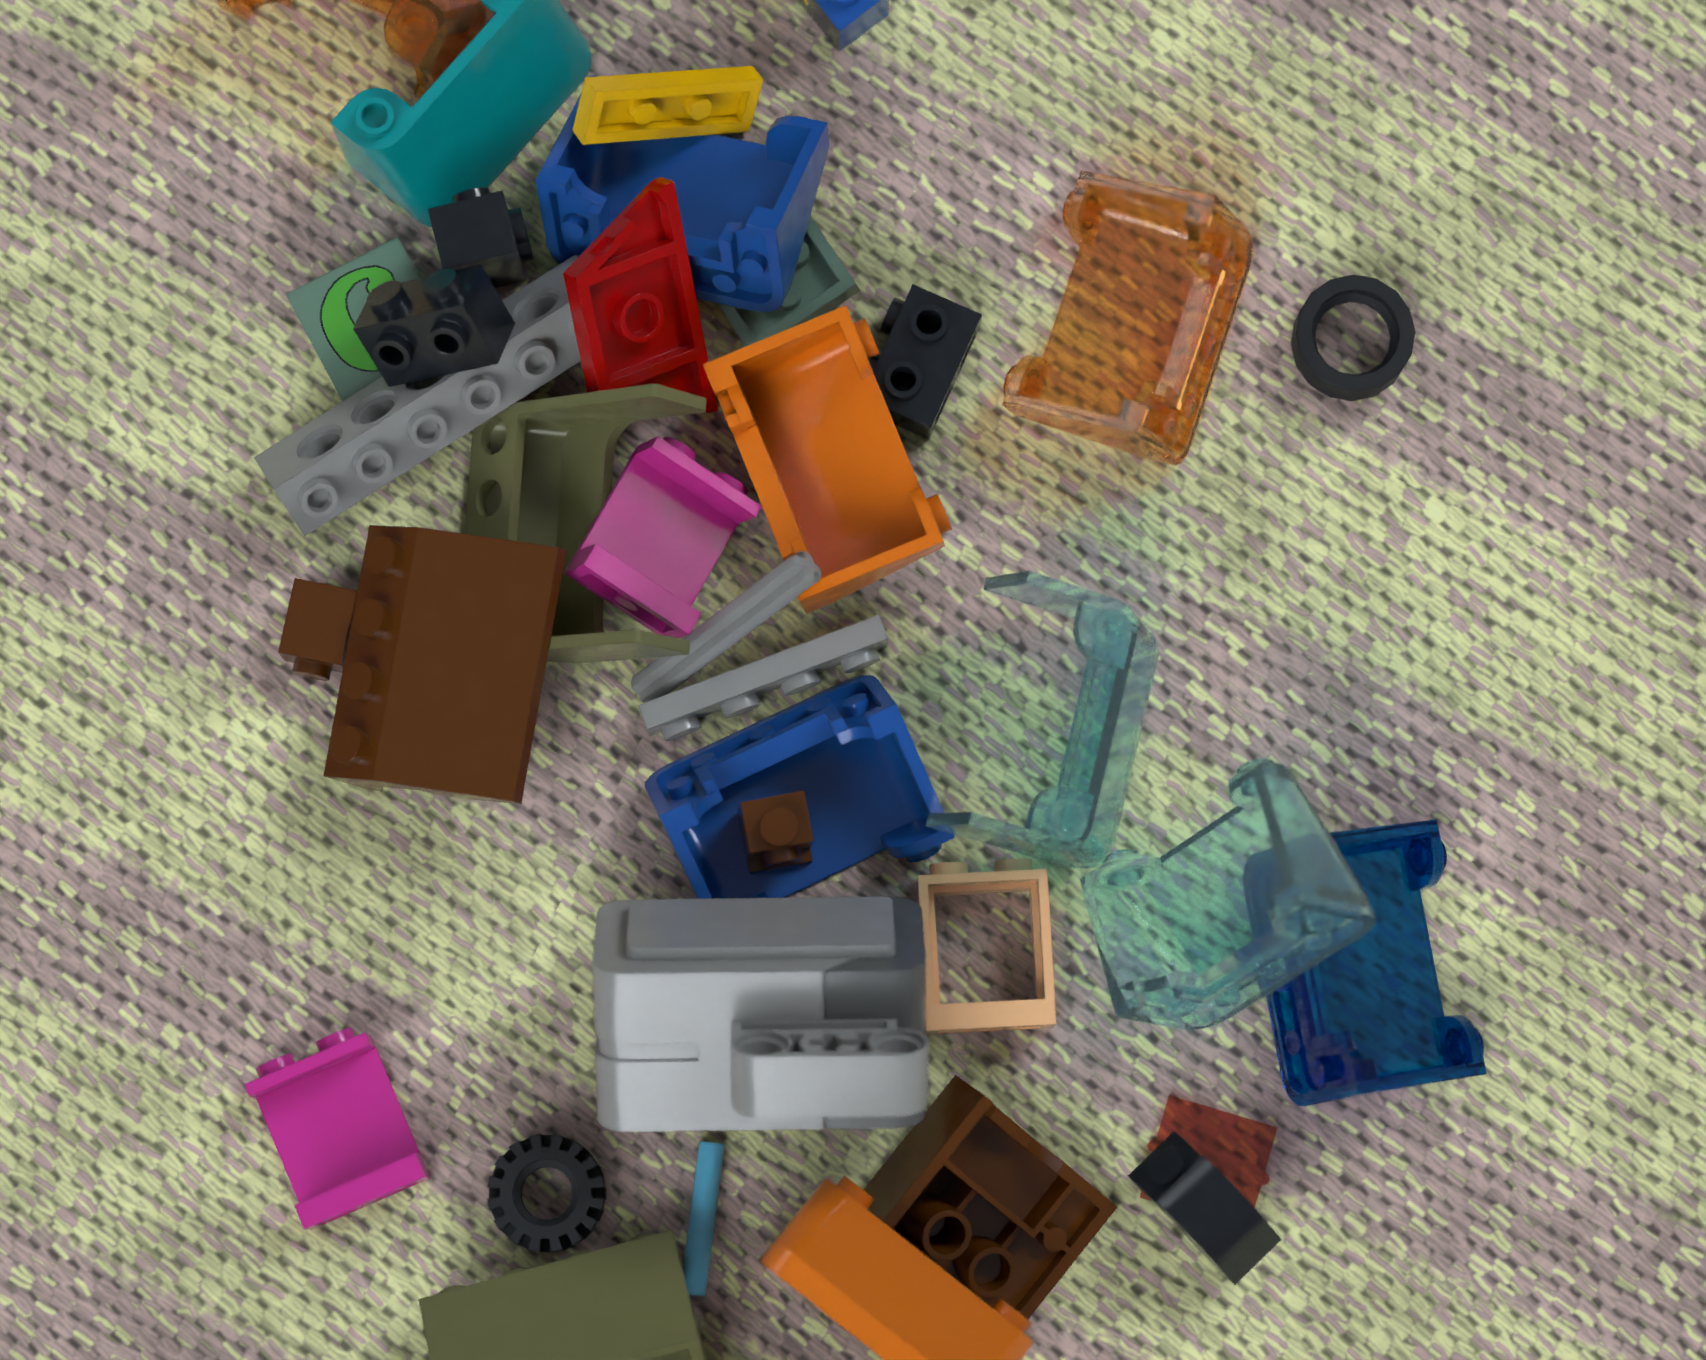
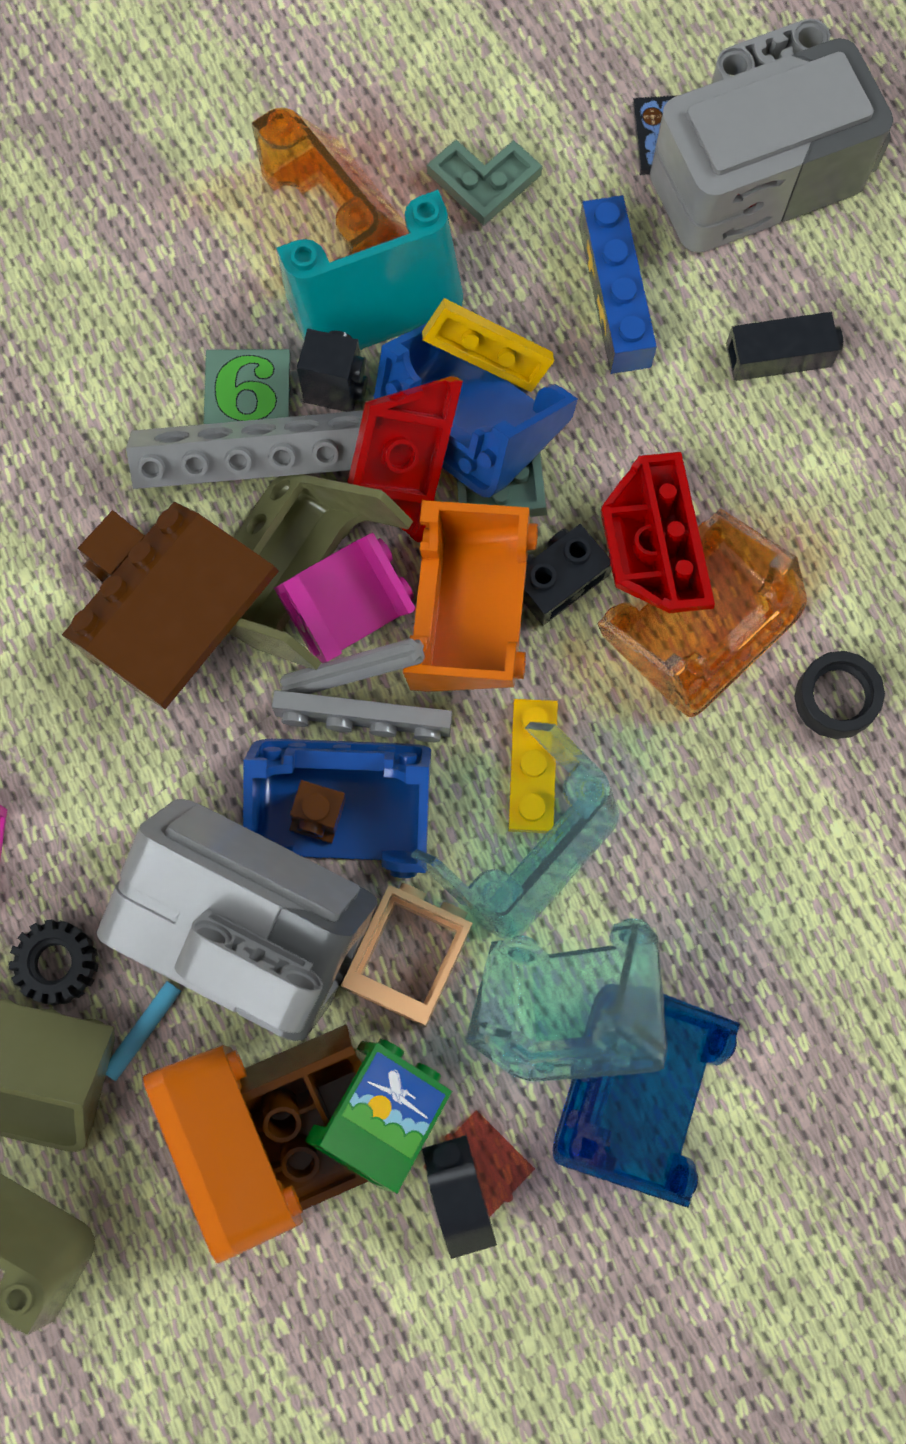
camera: 30 degrees right, 5 degrees down
(434, 325) = (275, 400): black brick -> none
(1013, 633) = (531, 769): none -> yellow plate
(1021, 253) = (656, 536): none -> red wedge
(1064, 1161) = (383, 1116): none -> panel

